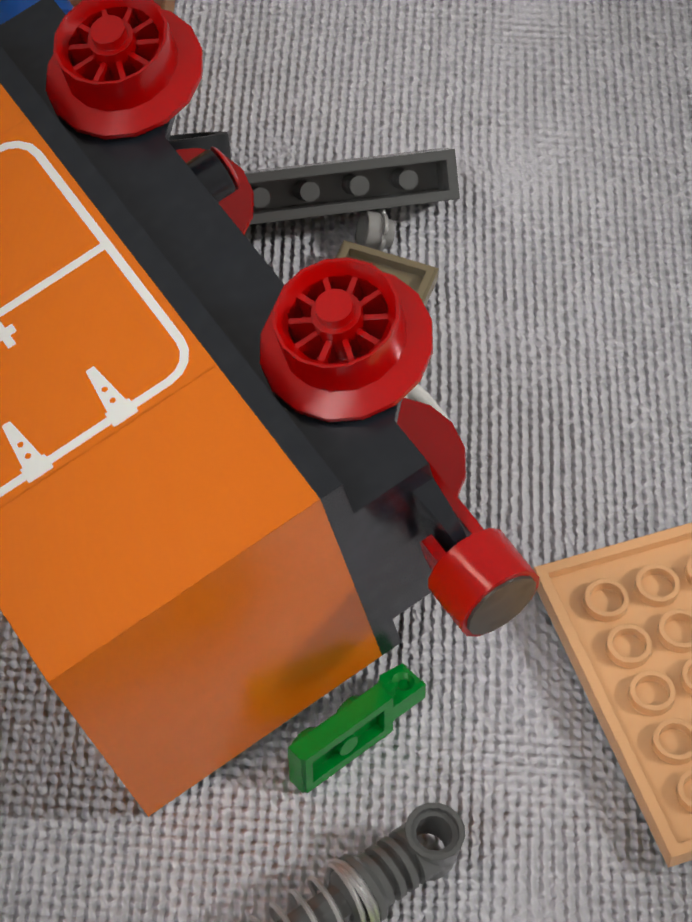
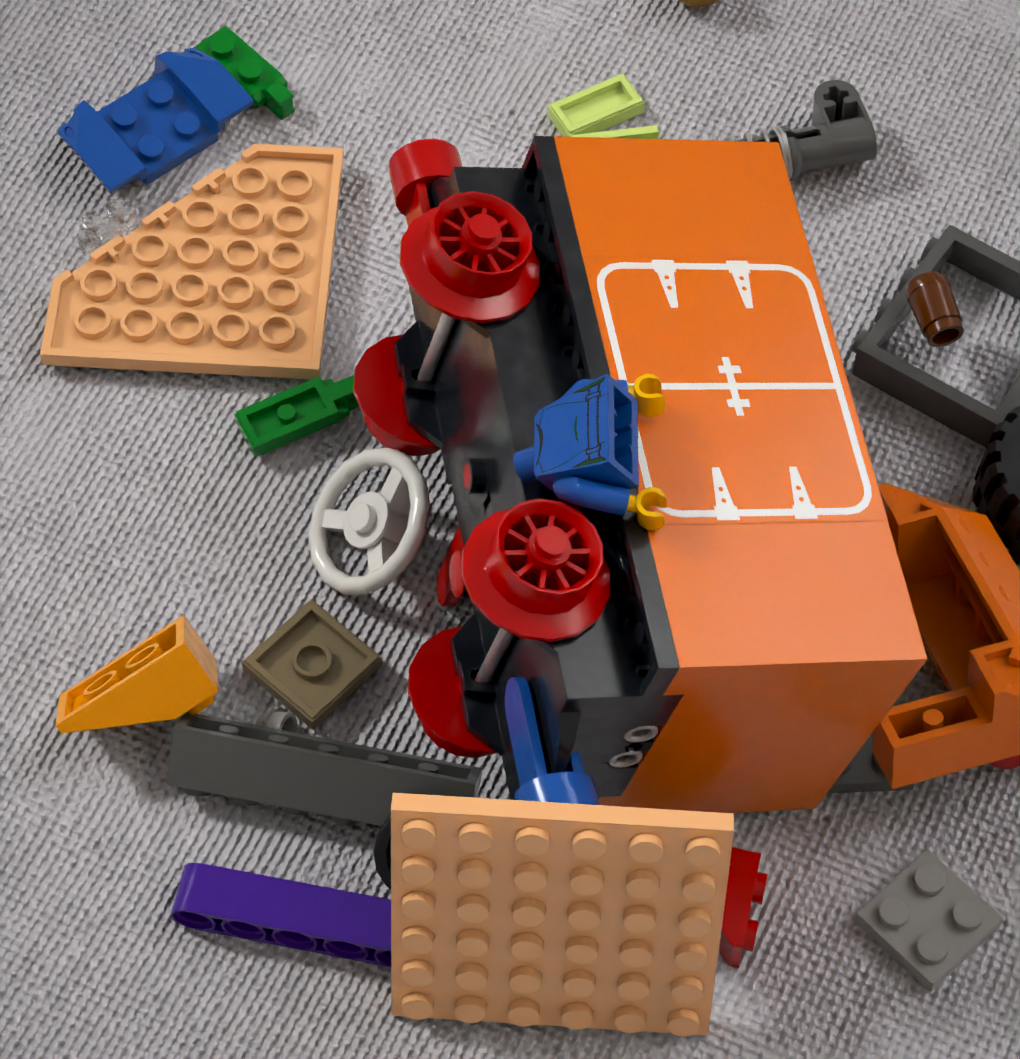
camera: 155 degrees left, 5 degrees up
(110, 138) = (590, 447): none -> blue torso
(286, 101) = (284, 913): none -> dark purple beam
(510, 198) = (144, 685): none -> light orange slope
(542, 511) = (295, 413): none -> green hinge

